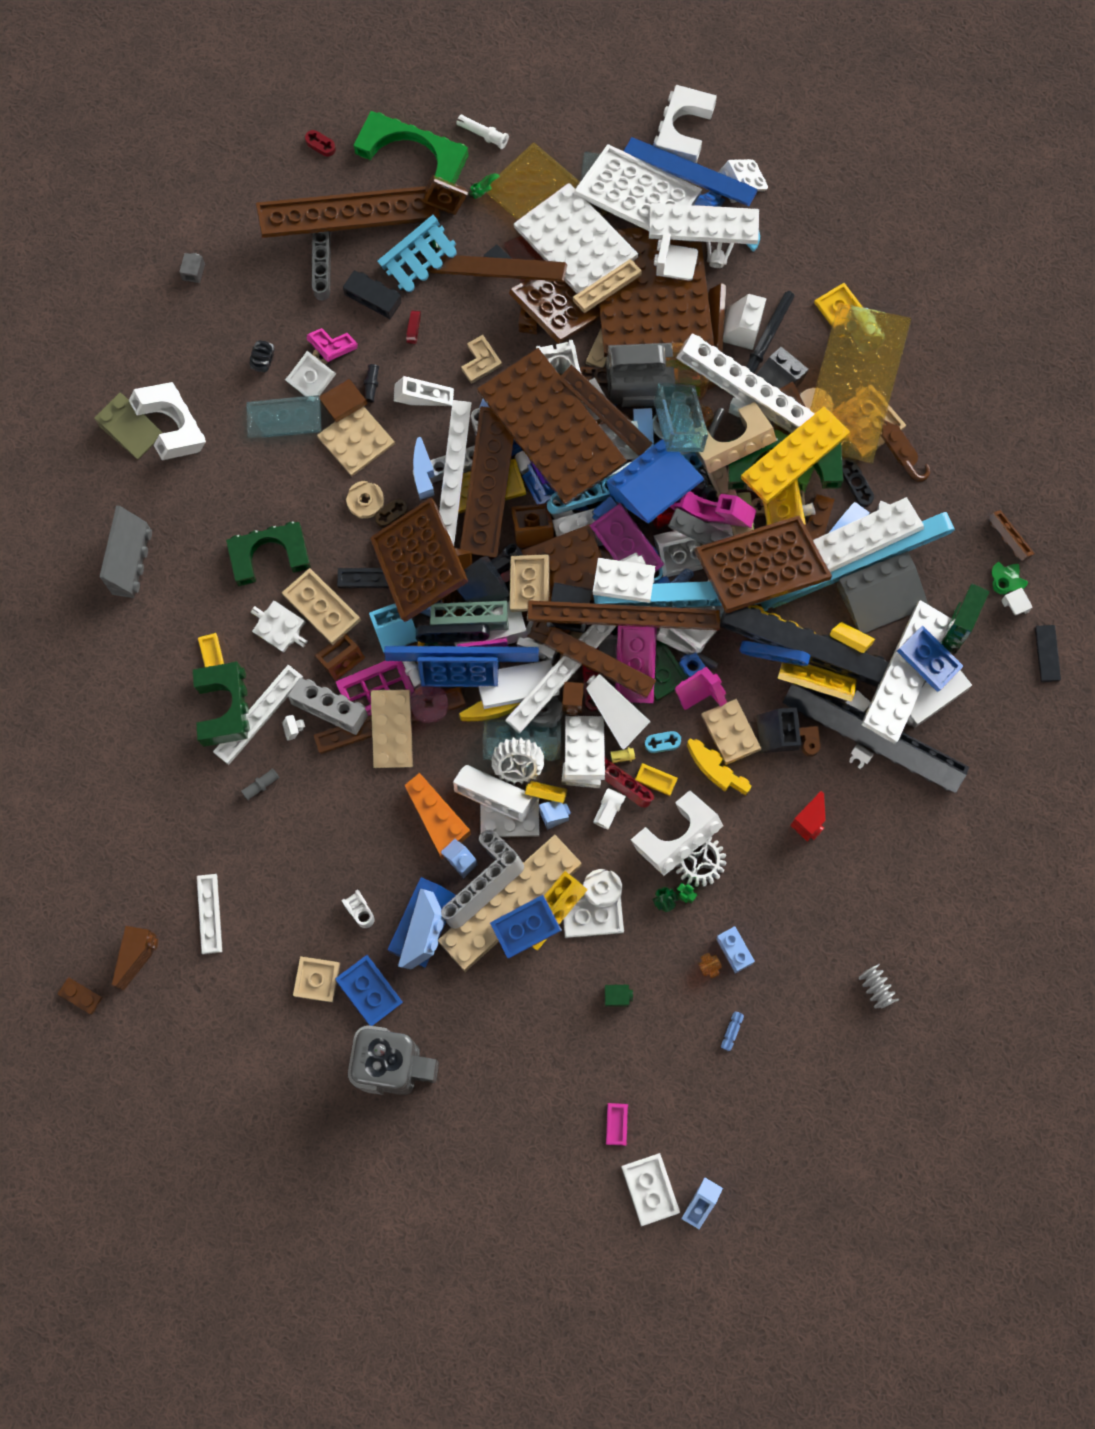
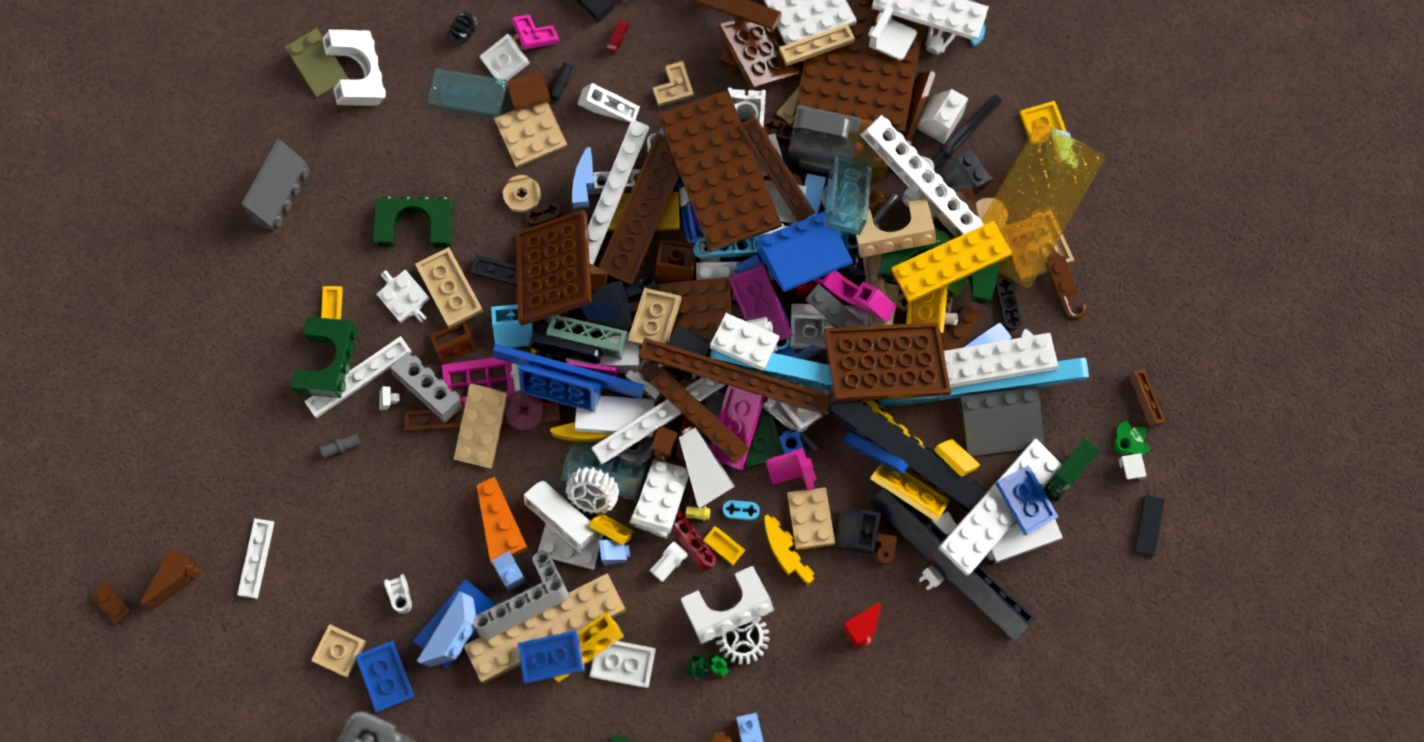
camera: 15 degrees right, 0 degrees up
(603, 887) = (639, 638): white tile -> none

